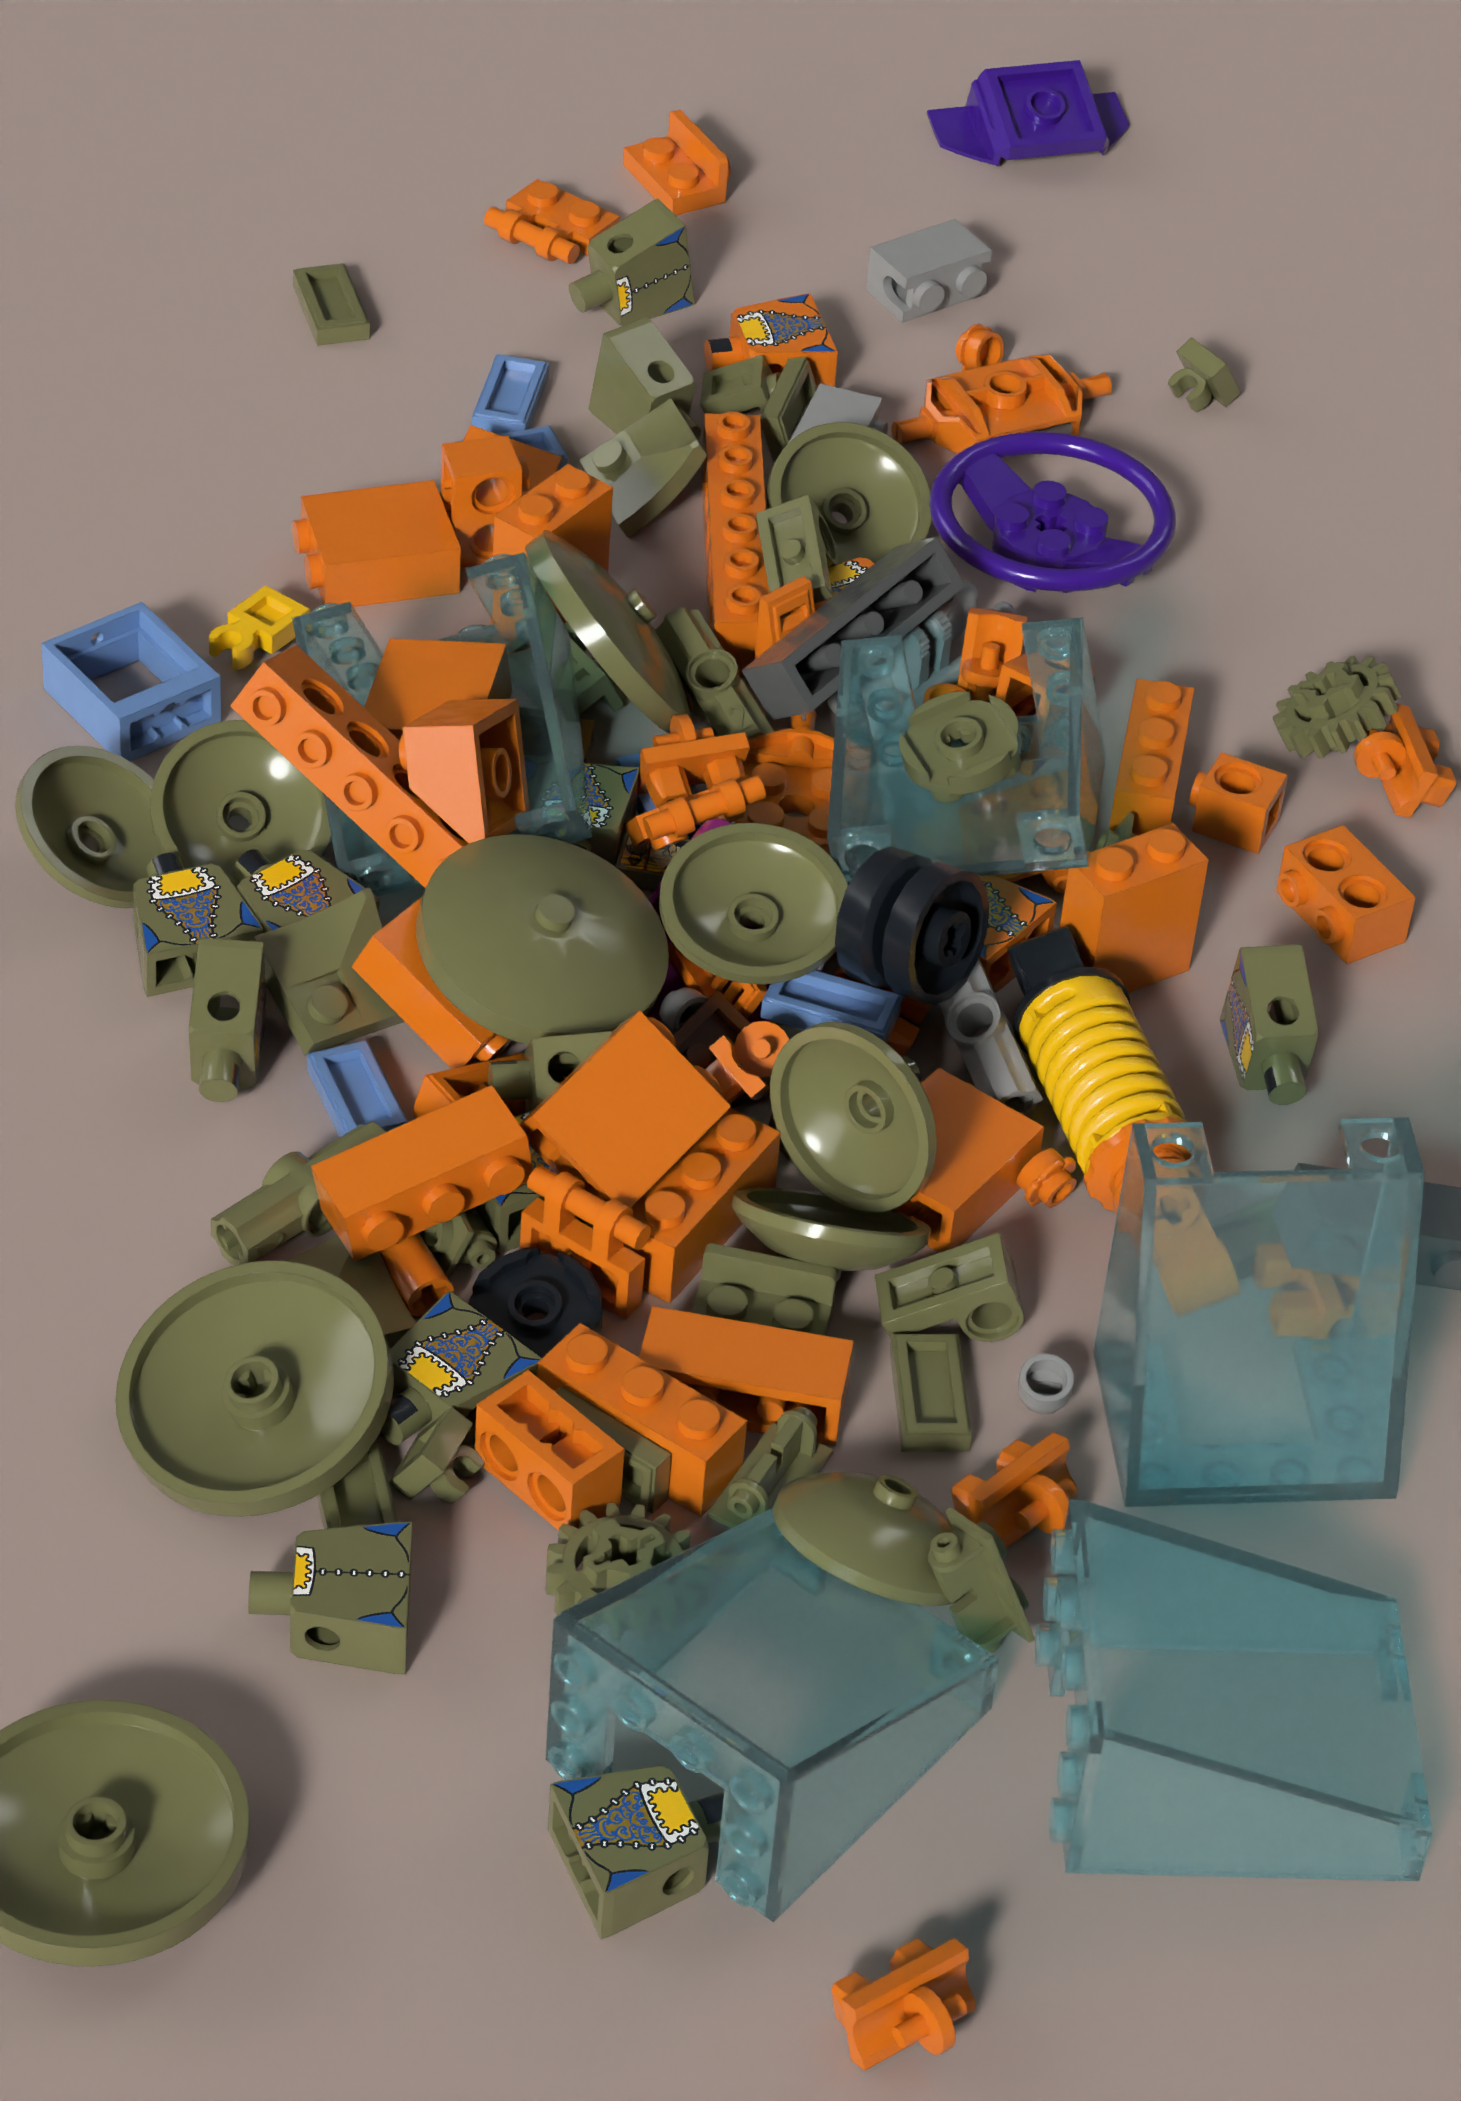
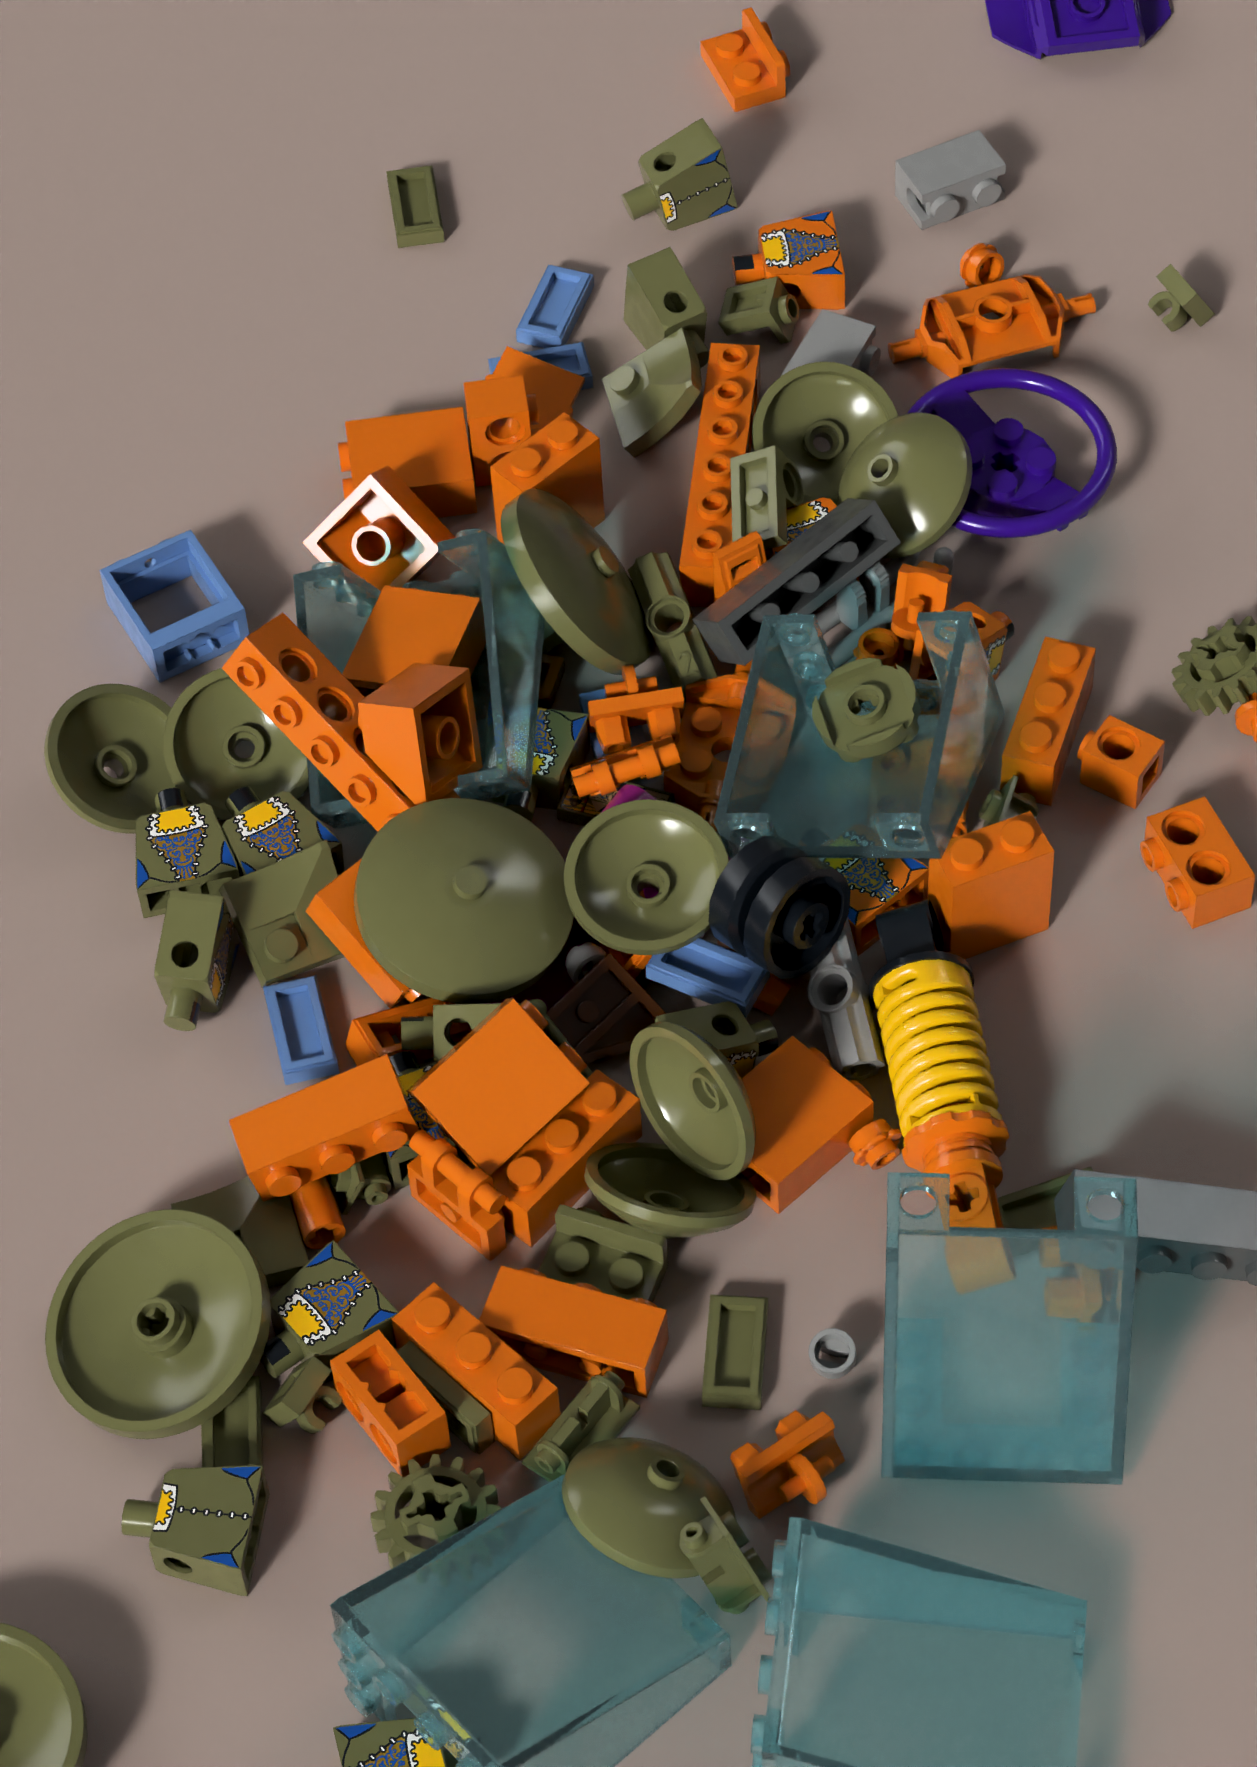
camera: 15 degrees right, 10 degrees up
(256, 623) = (285, 550): yellow plate -> none
(282, 1205) = (211, 1142): olive piece -> none
(376, 584) = (380, 532): none -> orange slope
(543, 1284) = (407, 1228): black plate -> none
(550, 221) = (633, 116): orange plate -> none
(745, 1064) = (613, 1030): orange hips -> none
(787, 404) = (793, 325): olive tile -> none
(963, 1283) = (779, 1253): olive plate -> none
(977, 520) = (915, 473): none -> olive dish
(1275, 1045) = (1099, 1002): olive torso -> none

